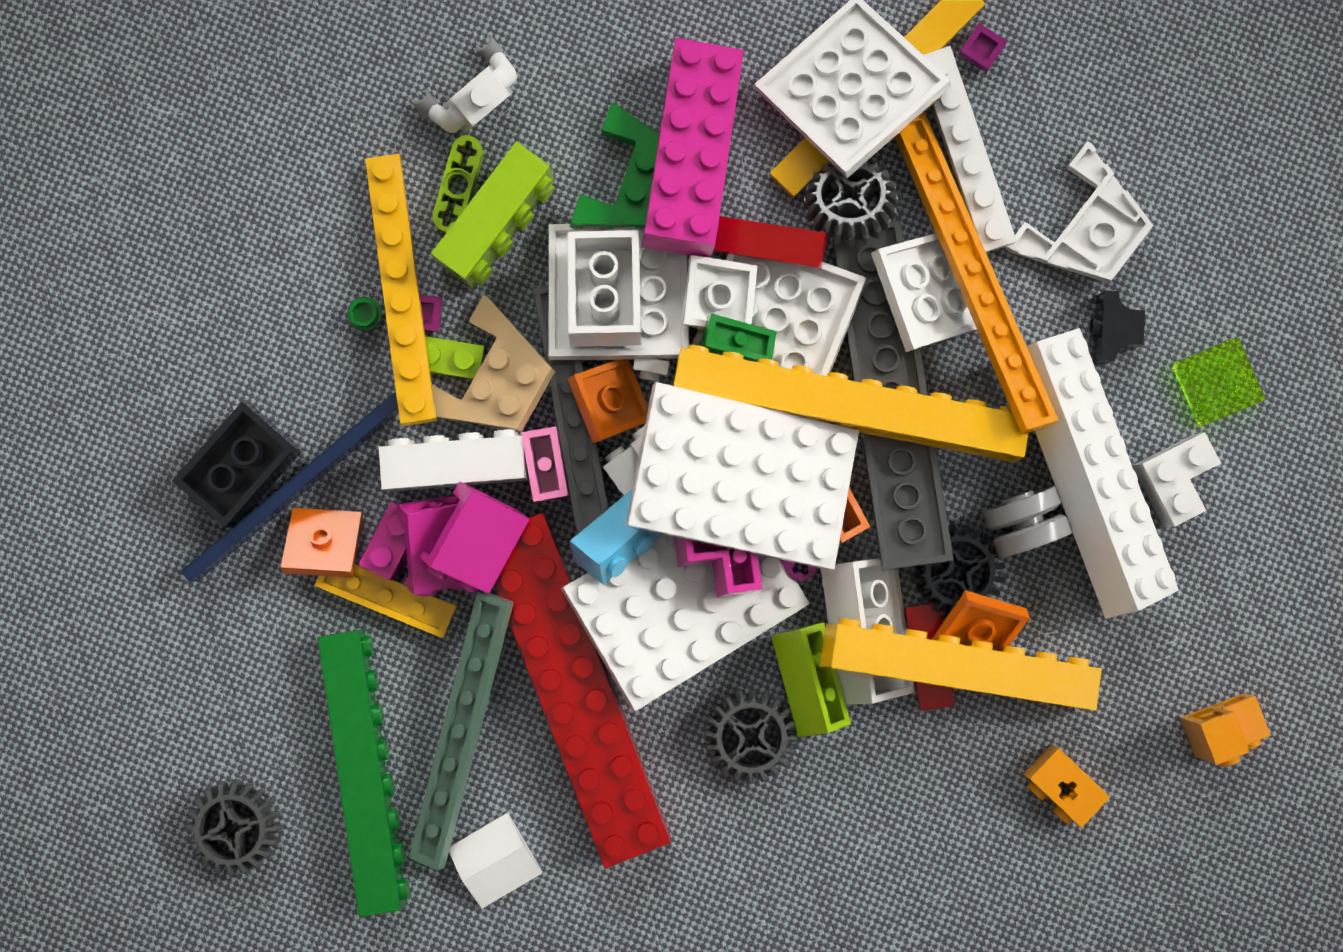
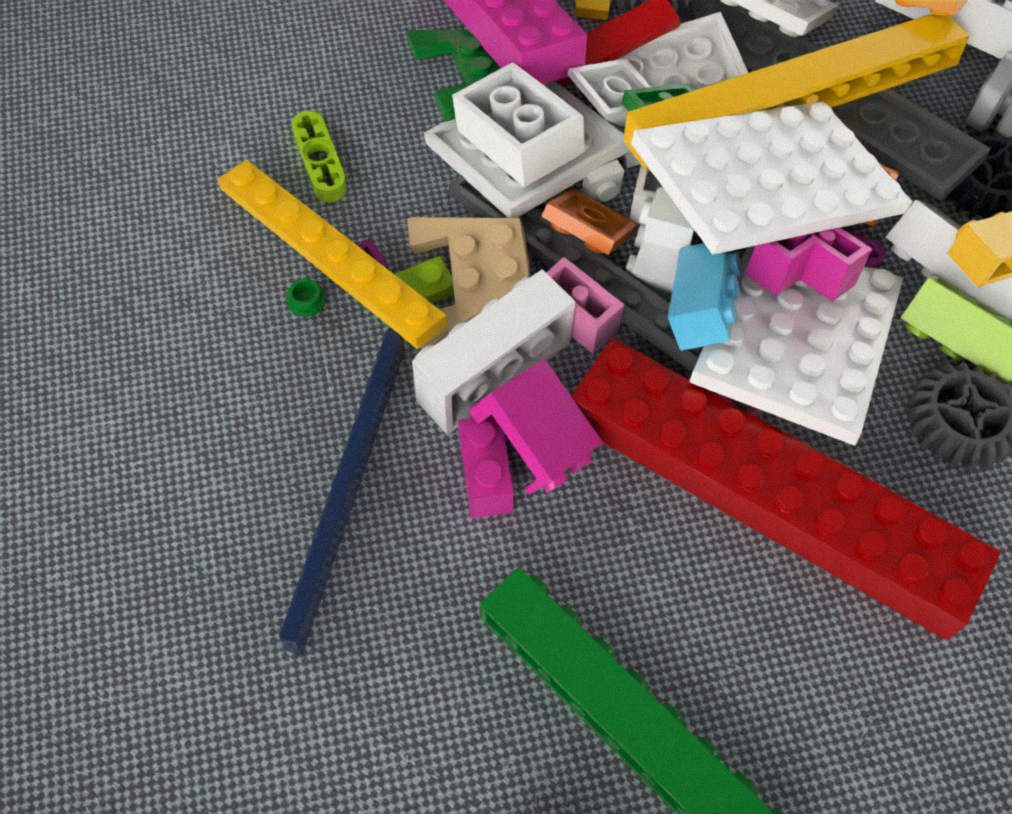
camera: 40 degrees left, 25 degrees down
(237, 465) = (270, 495): black brick -> none
(322, 542) = (414, 514): plate -> none
(392, 599) = (516, 527): yellow plate -> none
(461, 729) = (707, 604): sand green plate -> none
(475, 540) = (575, 384): dark pink panel -> none
(476, 97) = (287, 80): white torso -> none
(494, 860) = (843, 722): white slope -> none
(495, 216) = (373, 144): lime brick -> none

